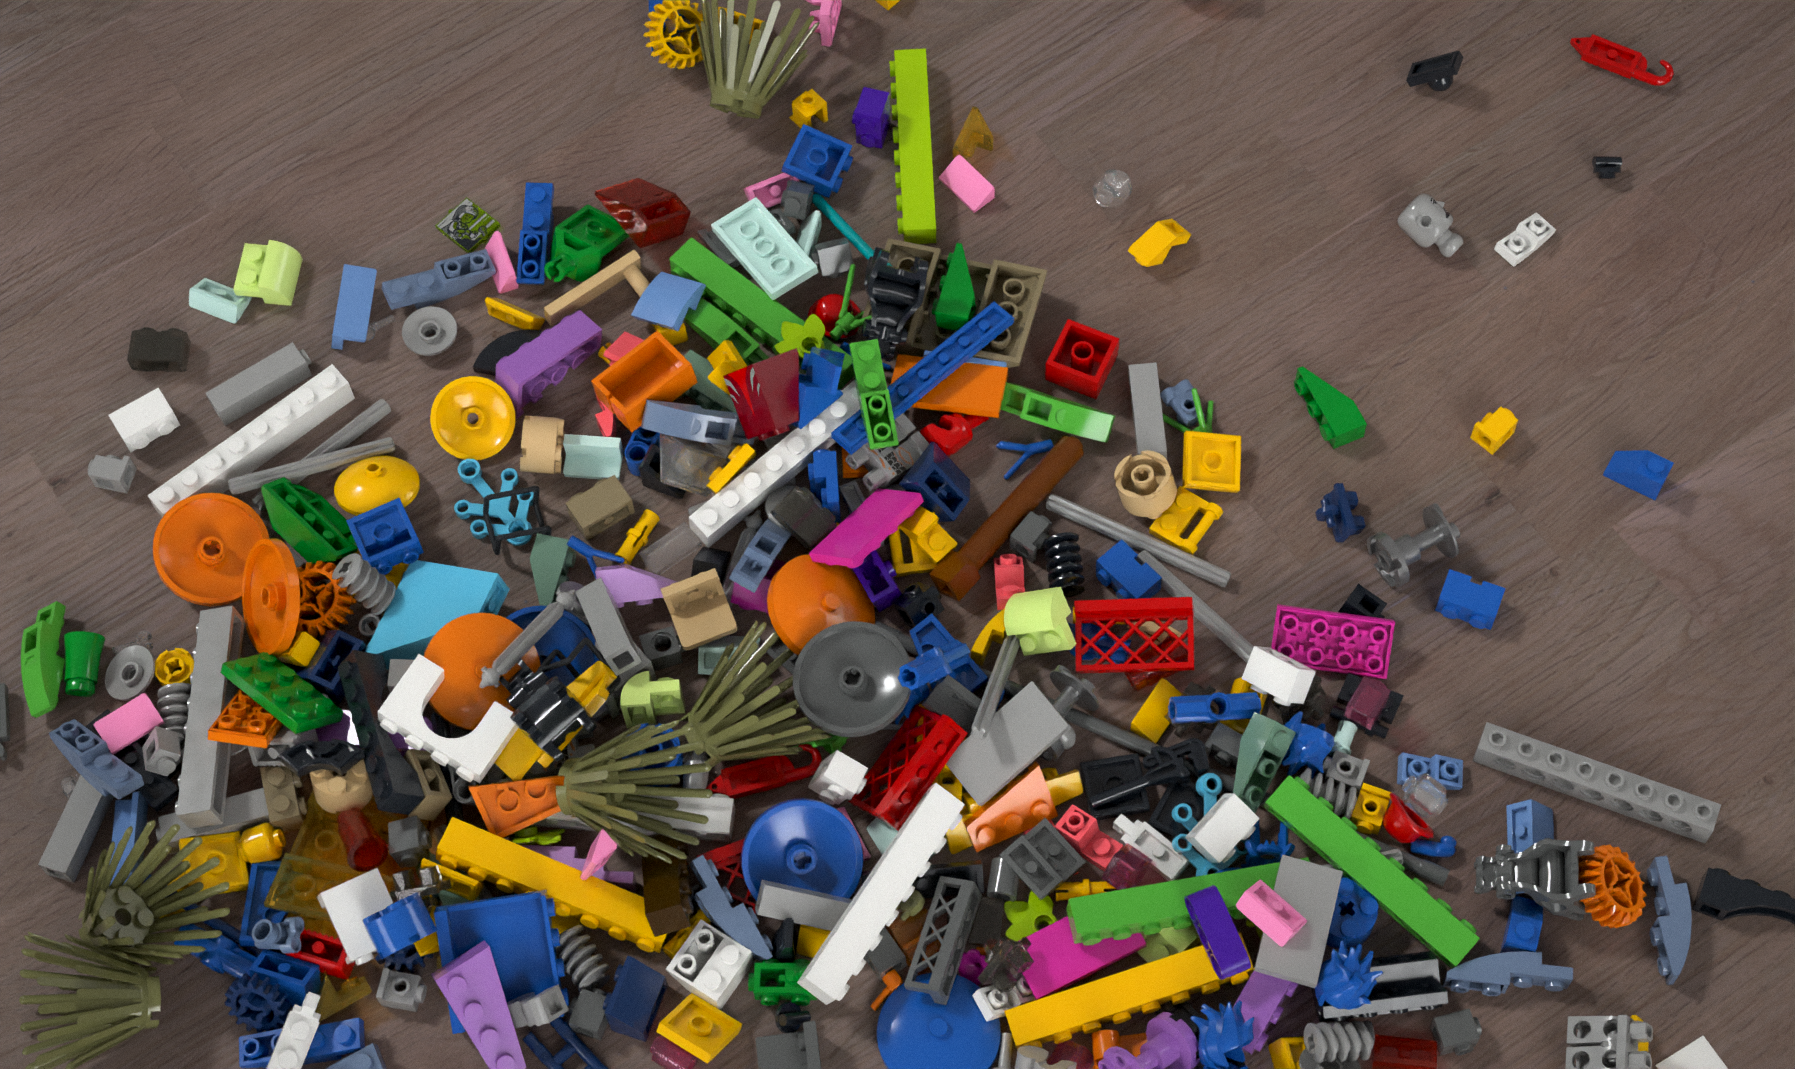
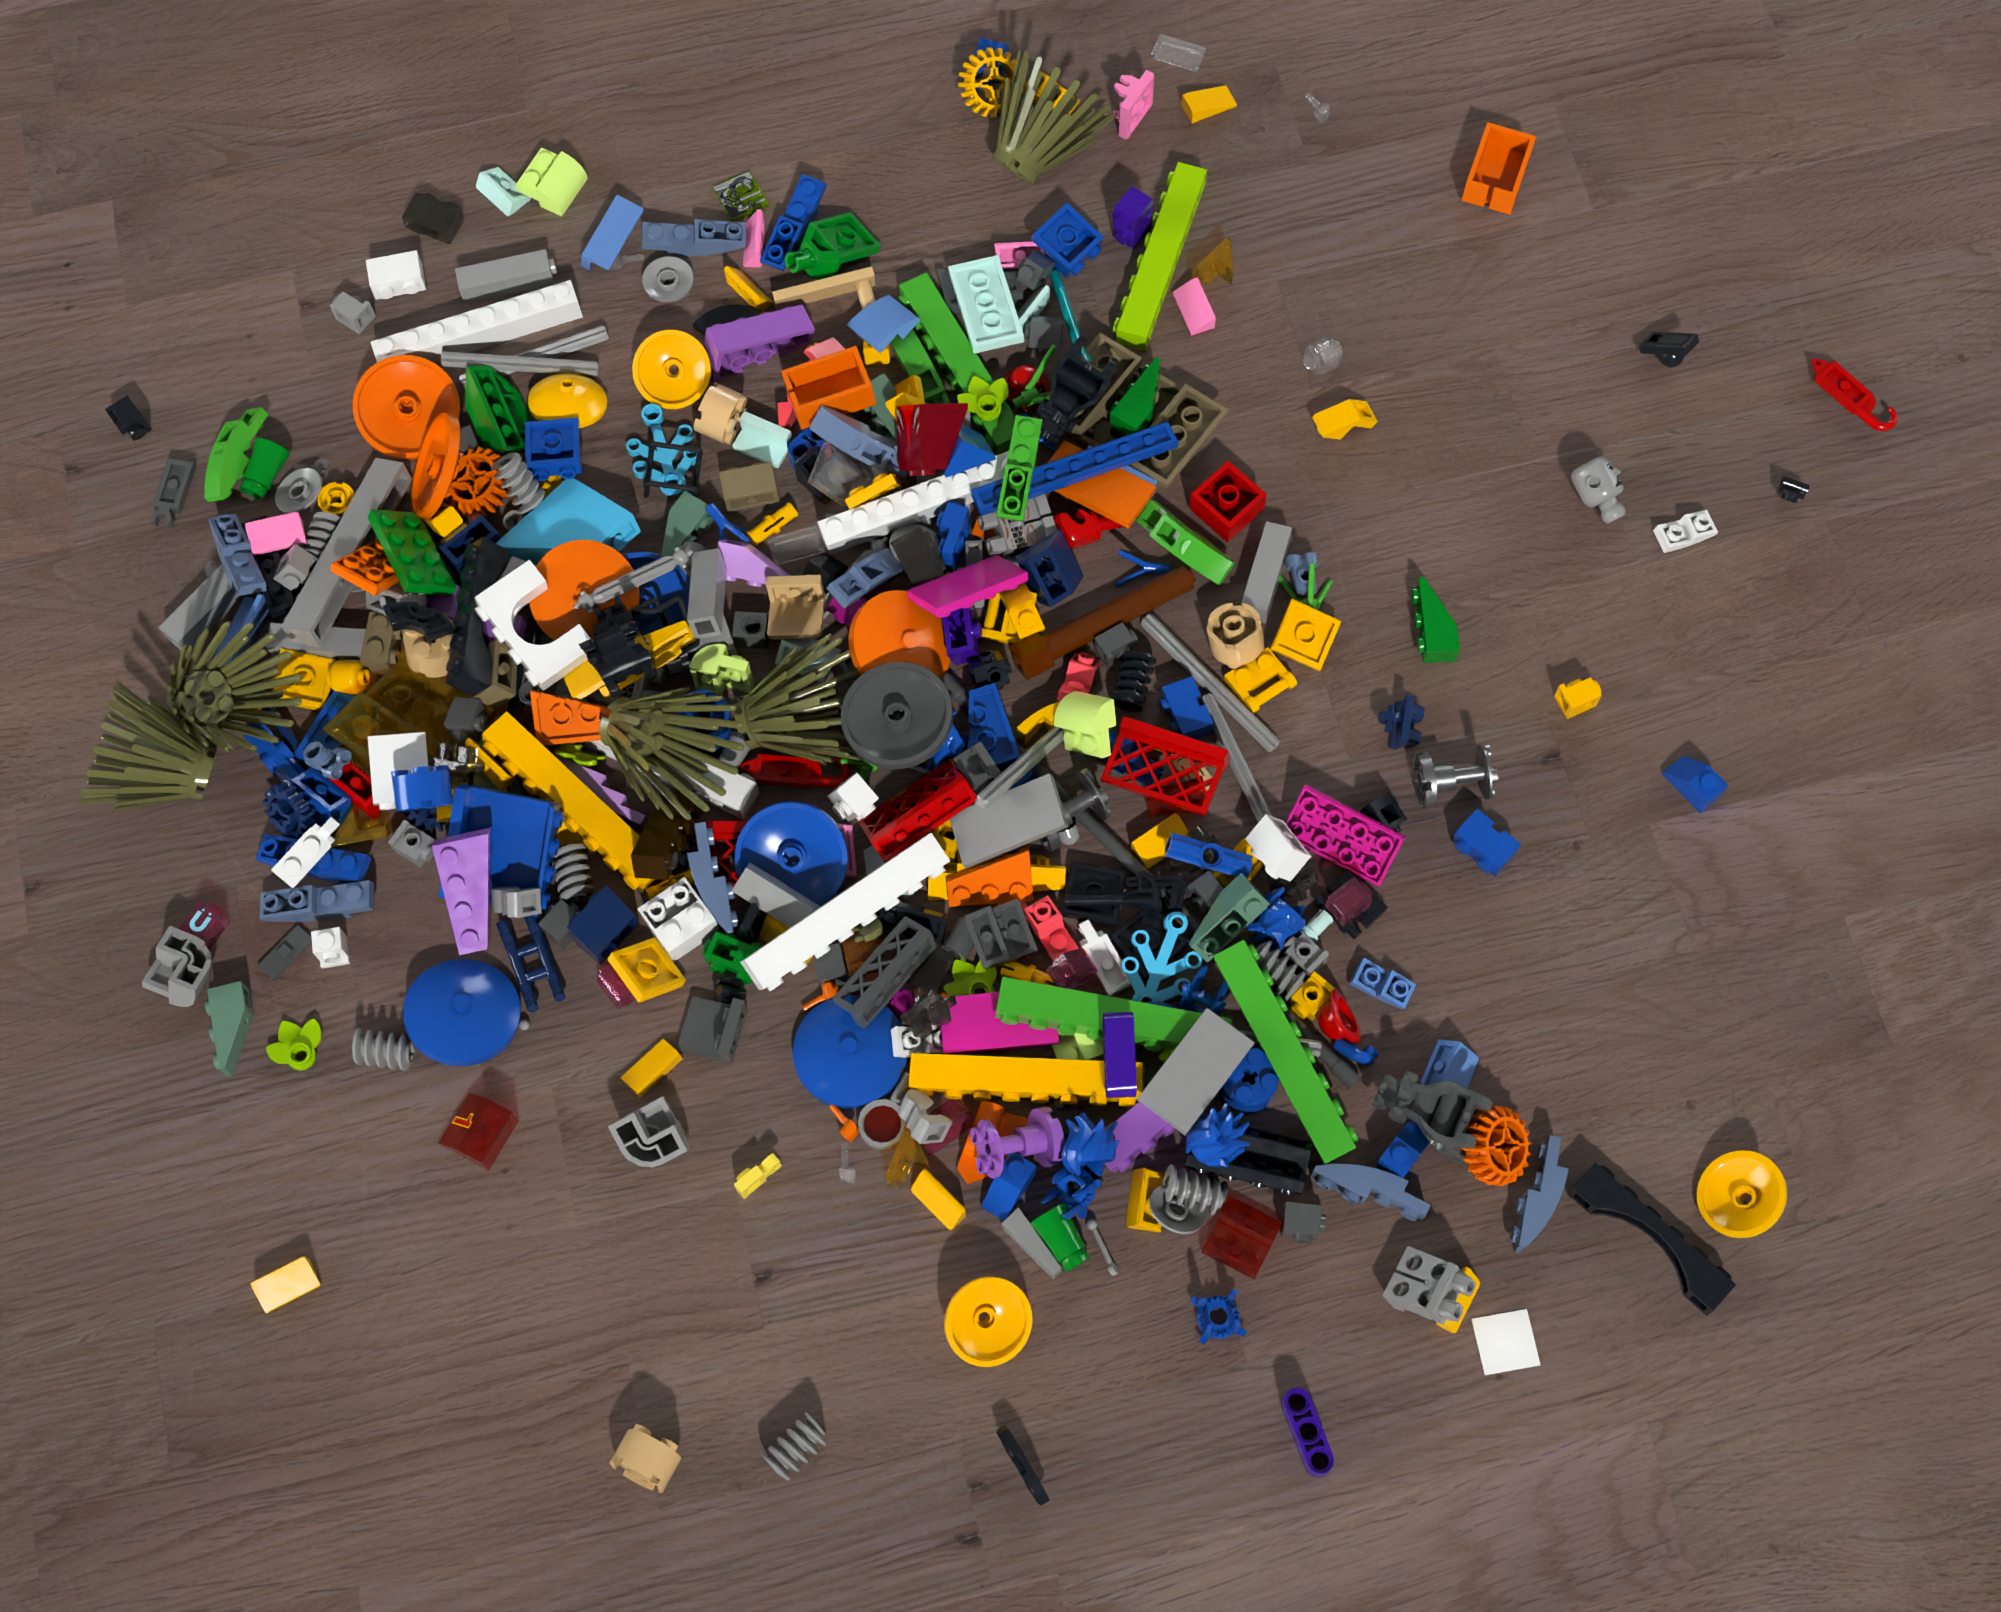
camera: 20 degrees right, 5 degrees up
(362, 843) = (425, 704): clear red plant -> none
(598, 854) = (614, 790): bright pink slope -> none
(645, 211) = (896, 235): clear red slope -> none
(806, 106) = (1080, 186): yellow window -> none
(823, 368) = (989, 430): blue slope -> none
(933, 664) = (971, 728): blue piece -> none
(1223, 828) = (1168, 965): white brick -> none
(1270, 913) = (1172, 1055): bright pink slope -> none
(1424, 795) = (1366, 1003): clear head -> none
(1597, 783) = (1528, 1049): light grey brick -> none

